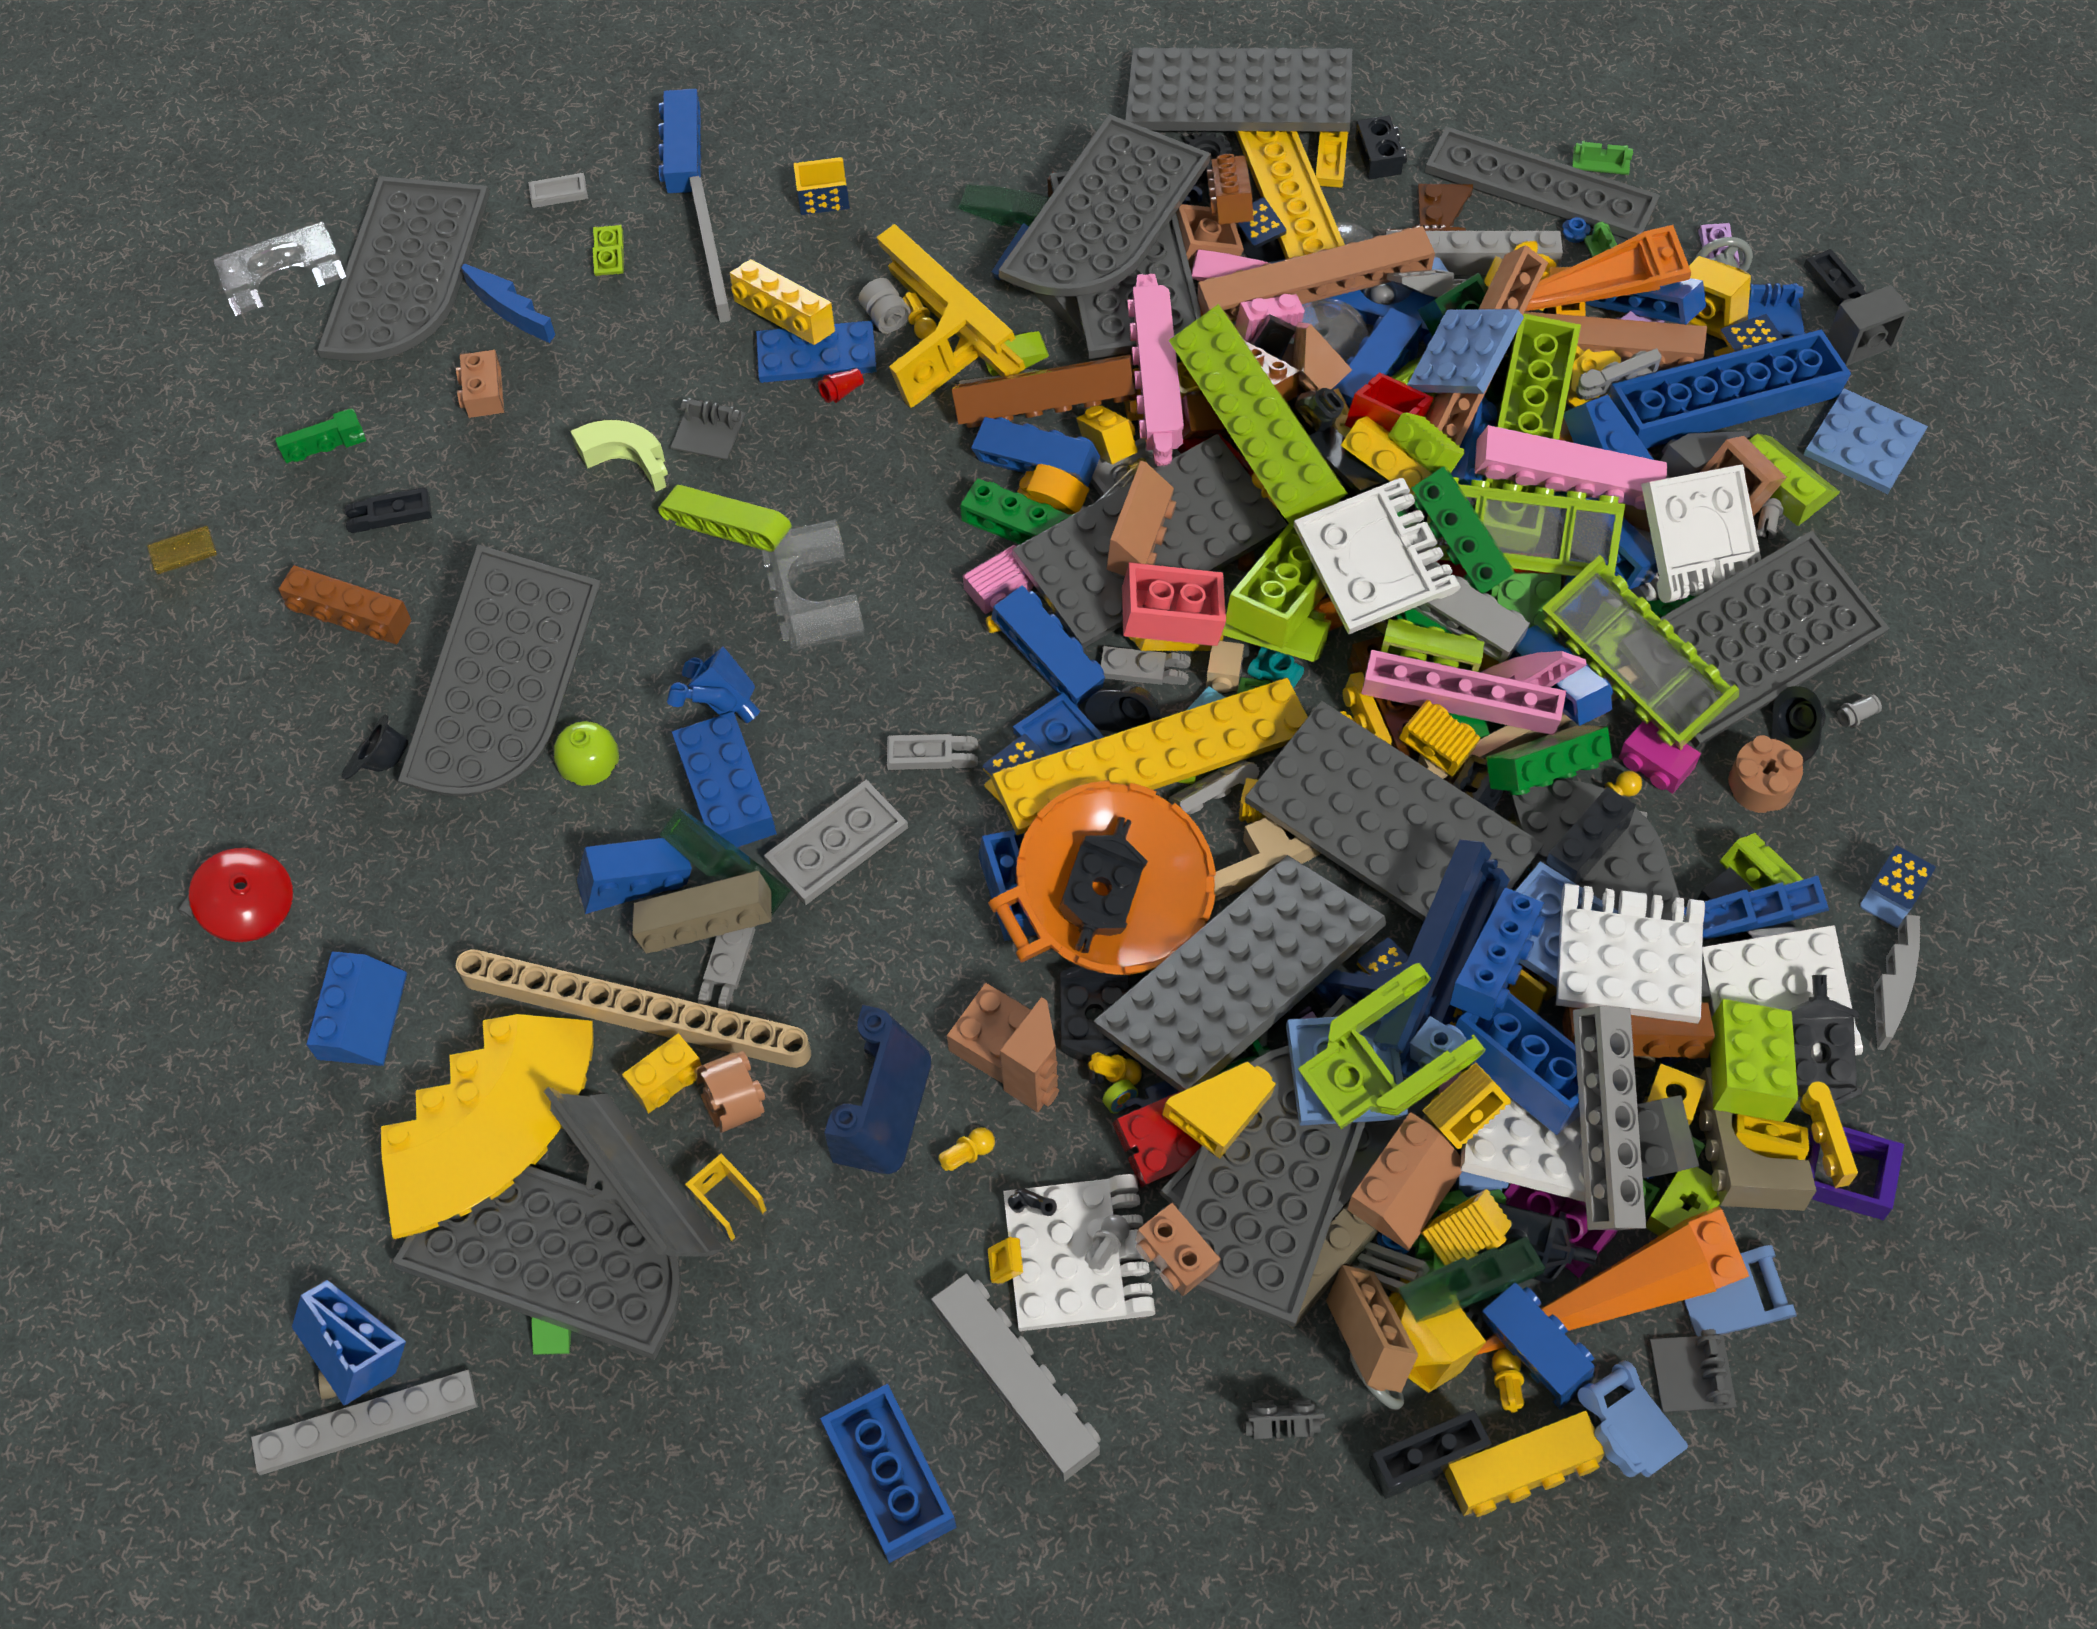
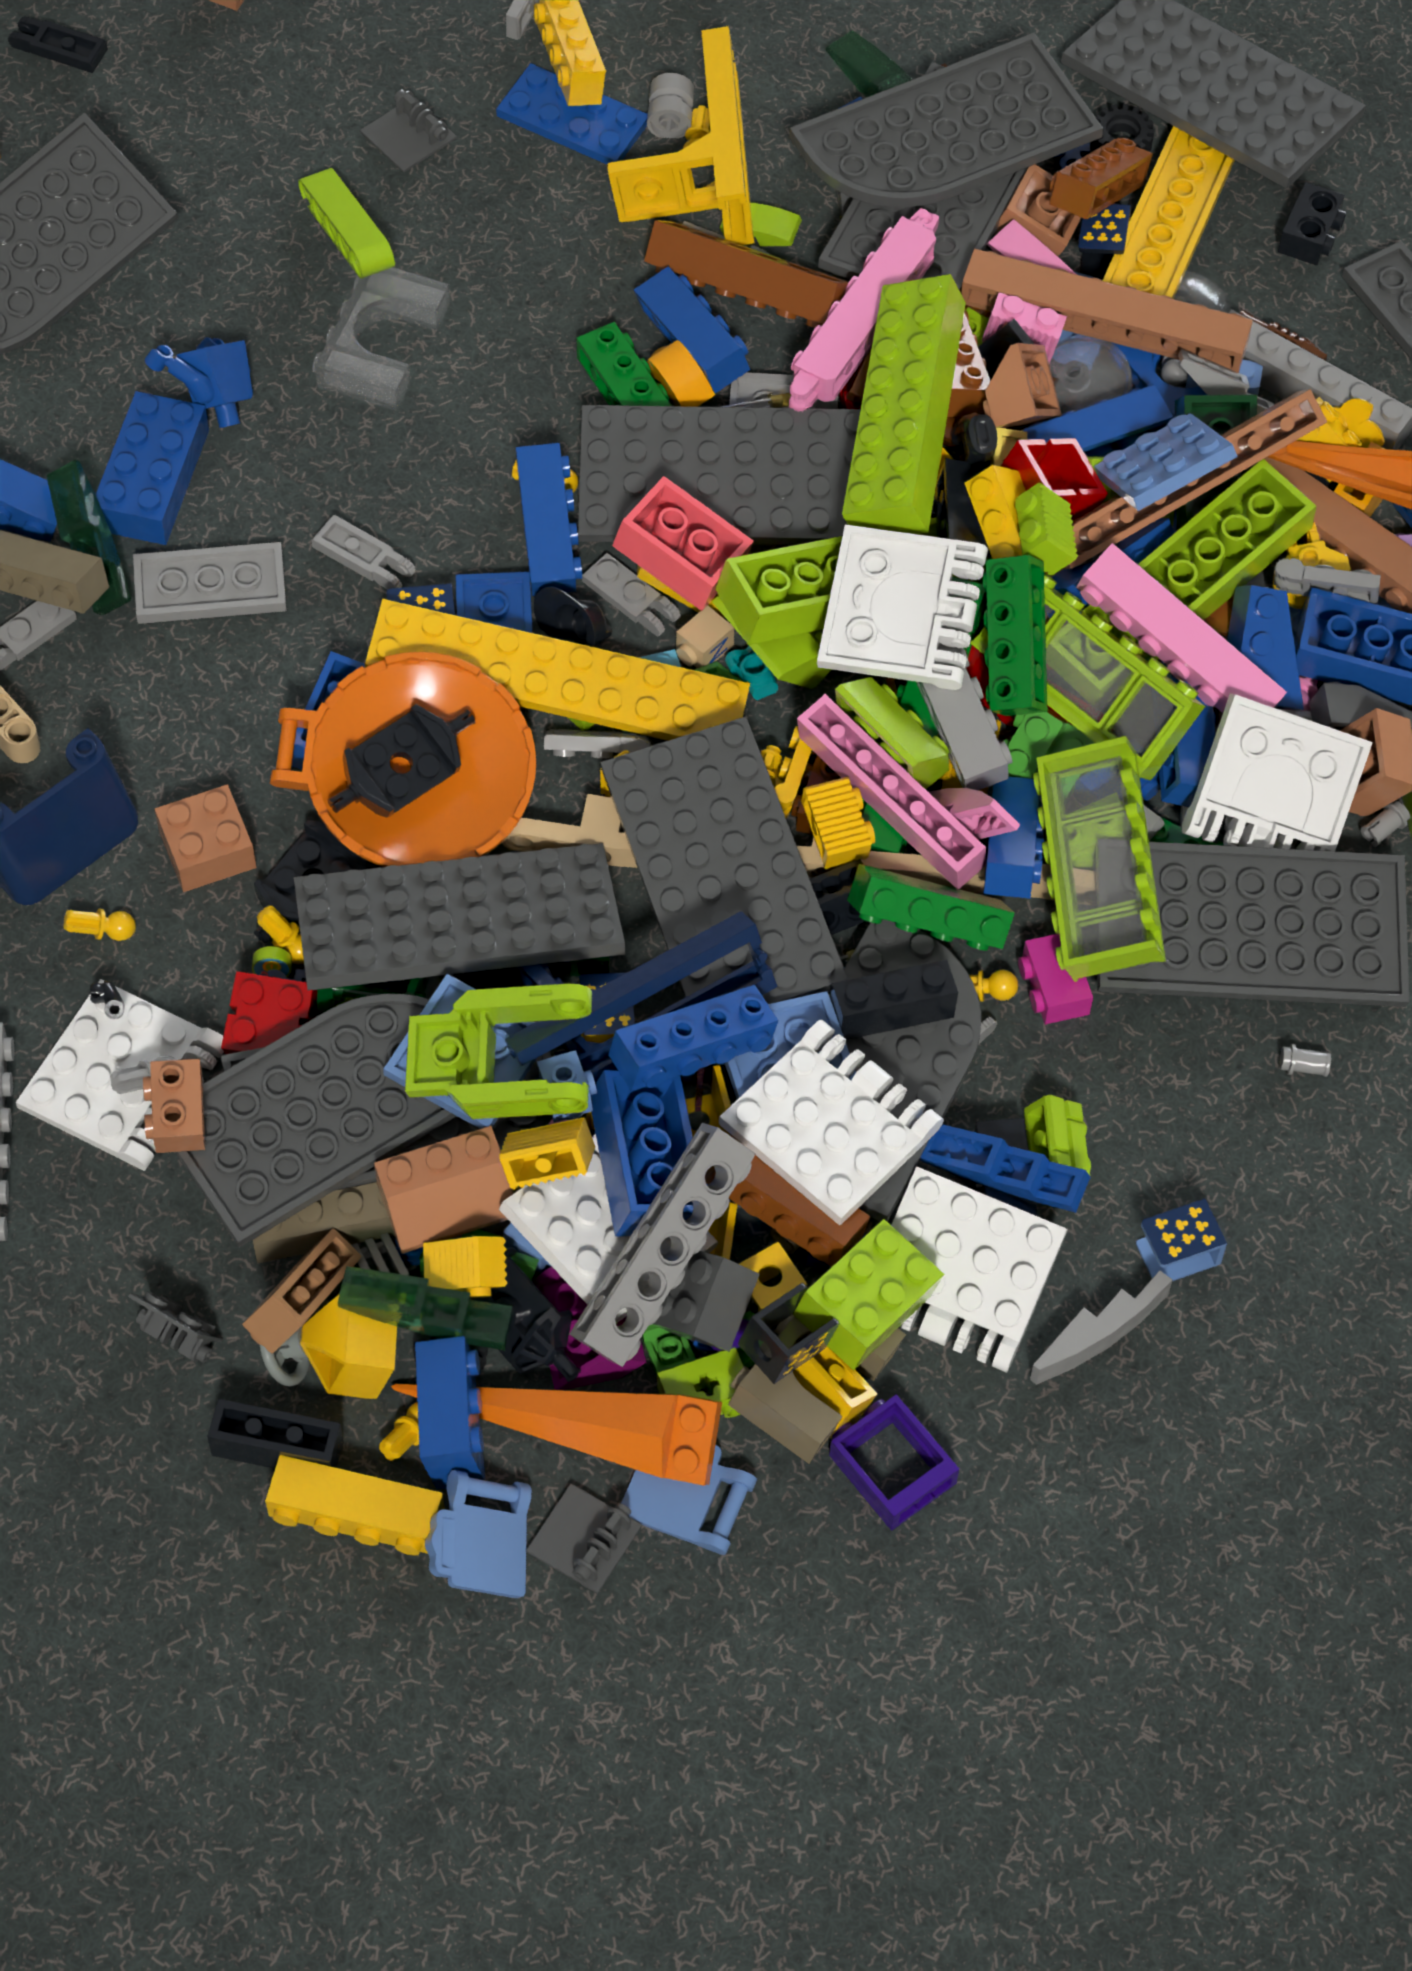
camera: 30 degrees right, 0 degrees up
(585, 753) = (53, 368): lime cylinder -> none
(623, 440) = (313, 93): yellowish green arch -> none
(838, 385) = (565, 160): red cone -> none
(995, 580) = (554, 425): bright pink brick -> none
(1005, 1260) = (50, 1037): yellow tile -> none
(1030, 1060) = (211, 872): nougat slope -> none
(1109, 433) = (775, 350): yellow brick -> none
(1141, 520) = (714, 443): nougat slope -> none
(1221, 1106) = (323, 1010): yellow slope -> none
(1331, 158) = (1253, 208): yellow plate -> none
(1441, 202) = (1330, 318): reddish brown wing -> none
(1717, 1135) = (783, 1359): none -> black piece
(1765, 774) = (1145, 1059): nougat brick -> none
(1798, 720) = (1226, 1032): black piece -> none
(1828, 1131) = (885, 1406): yellow plate -> none
(1833, 1027) = (962, 1304): black plate -> none

